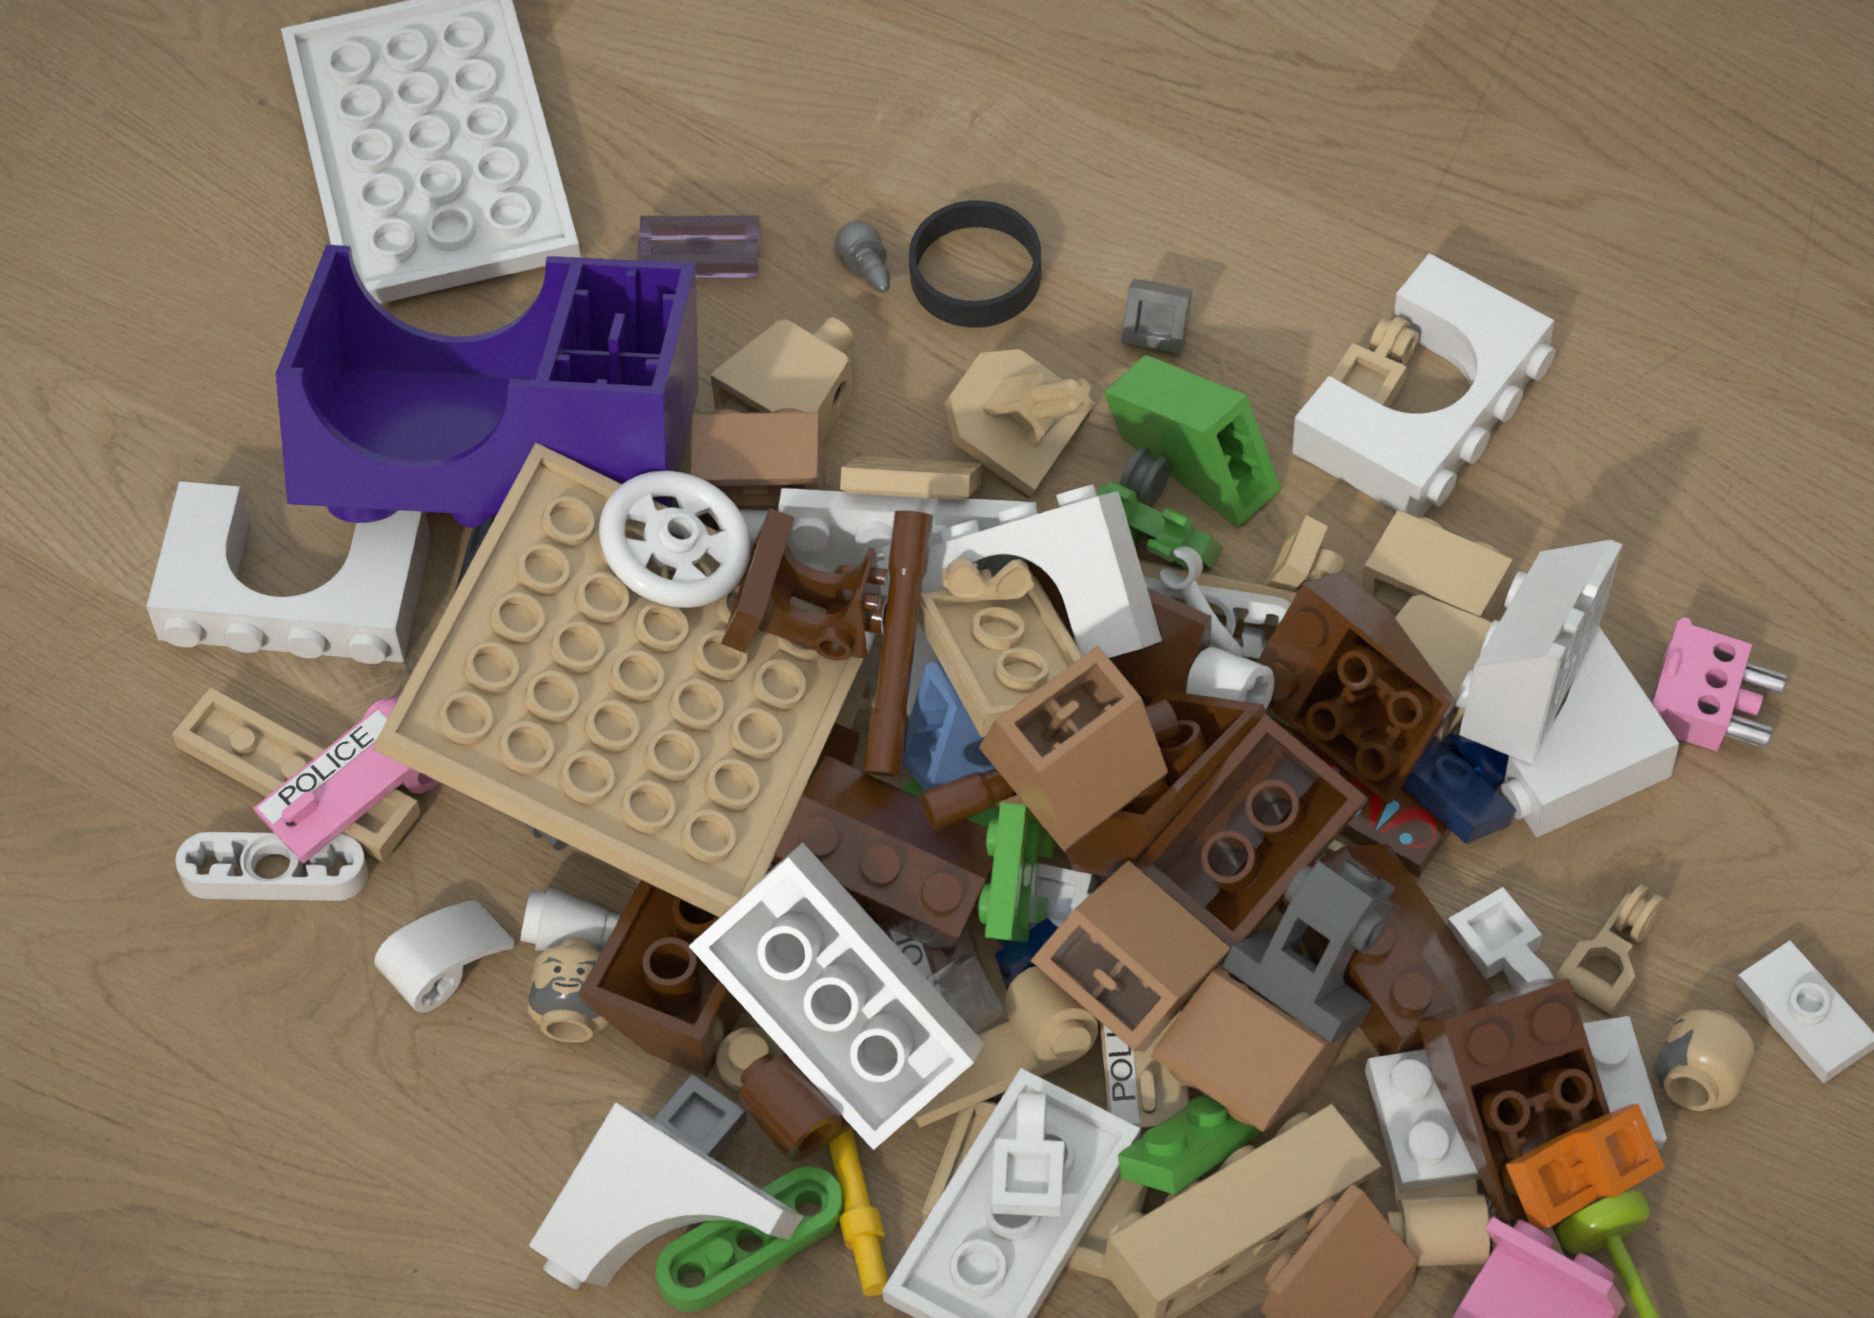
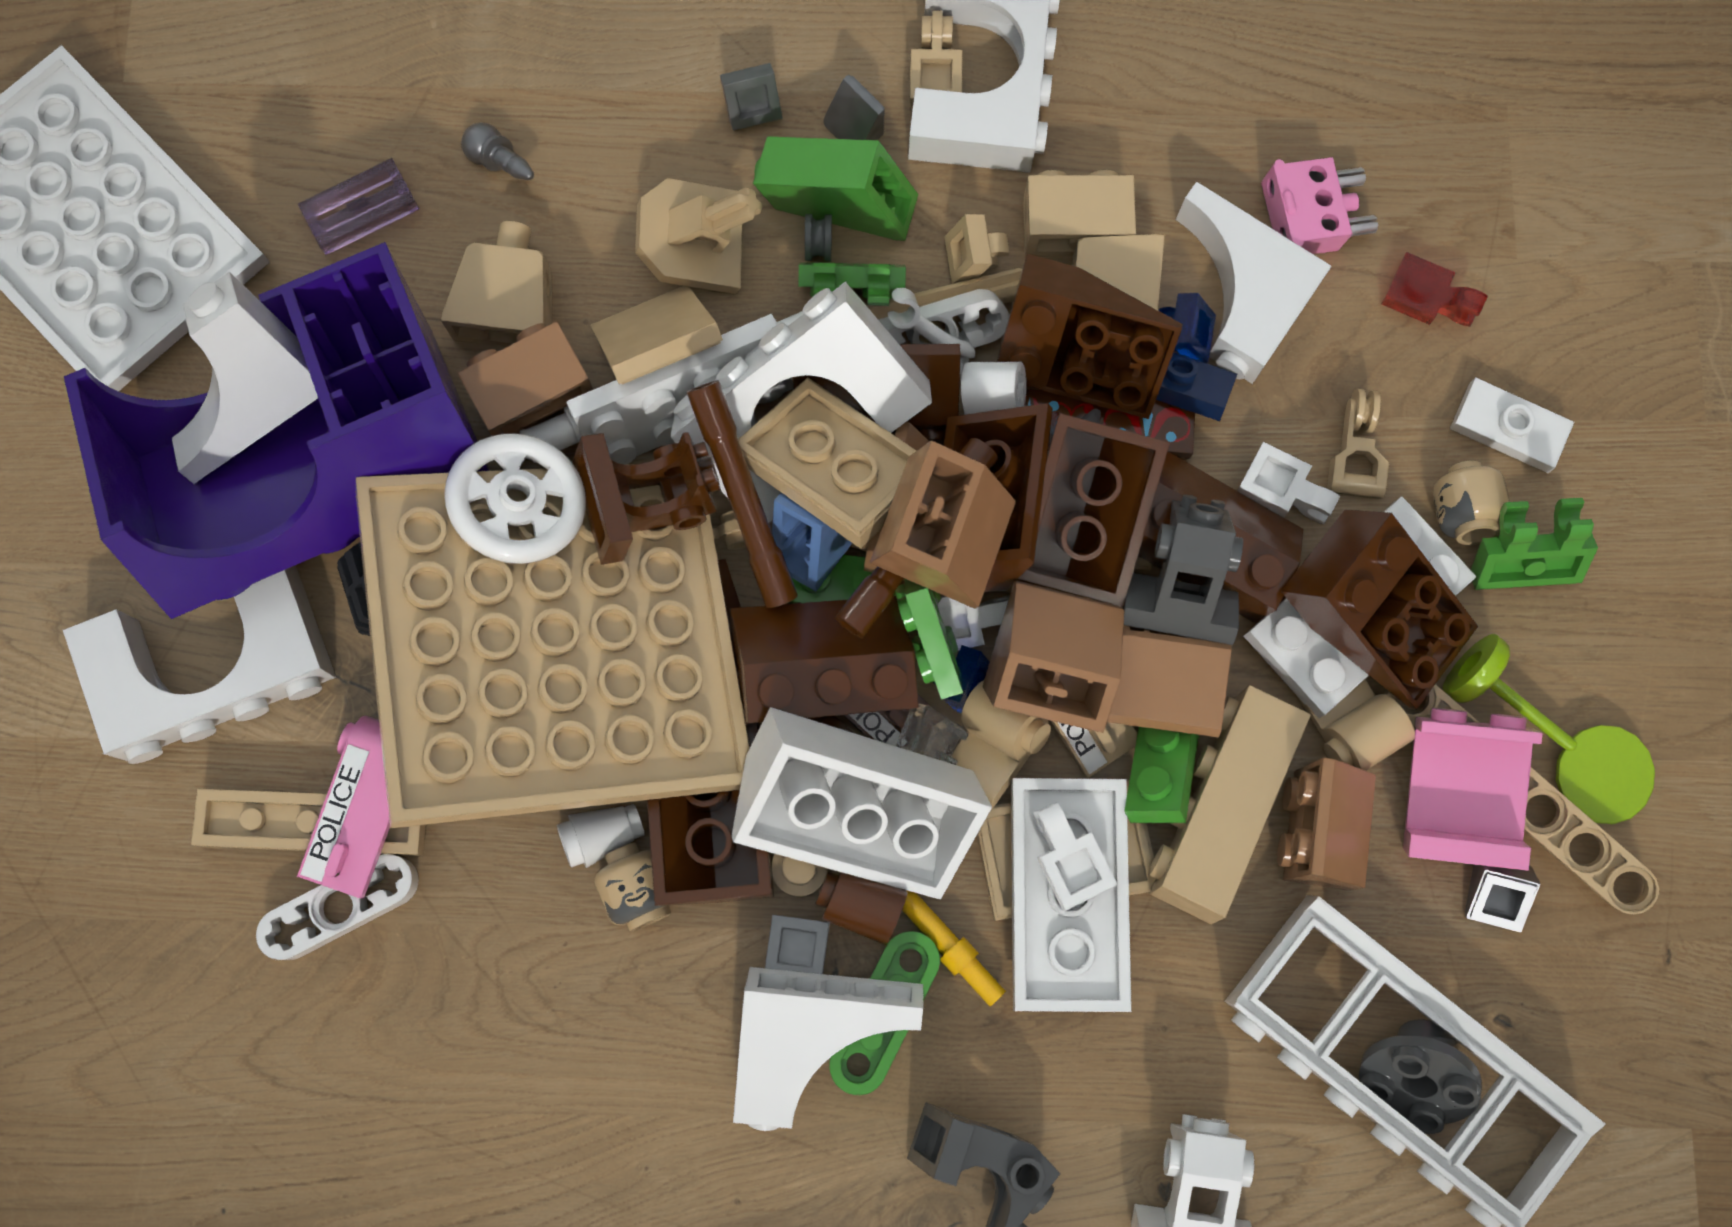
camera: 35 degrees left, 20 degrees up
(429, 954) = (514, 907): white panel -> none
(501, 323) = (254, 380): none -> white arch
(968, 215) = (584, 69): black tyre -> none
(968, 583) = (766, 415): tan piece -> none
(1260, 378) = (855, 112): none -> flat silver slope
(1537, 648) = (1216, 242): white wedge -> none
(1585, 1165) = (1464, 633): orange slope -> none
(1739, 1147) = (1528, 559): none -> bright green plate
(1790, 830) = (1424, 289): none -> clear red plate

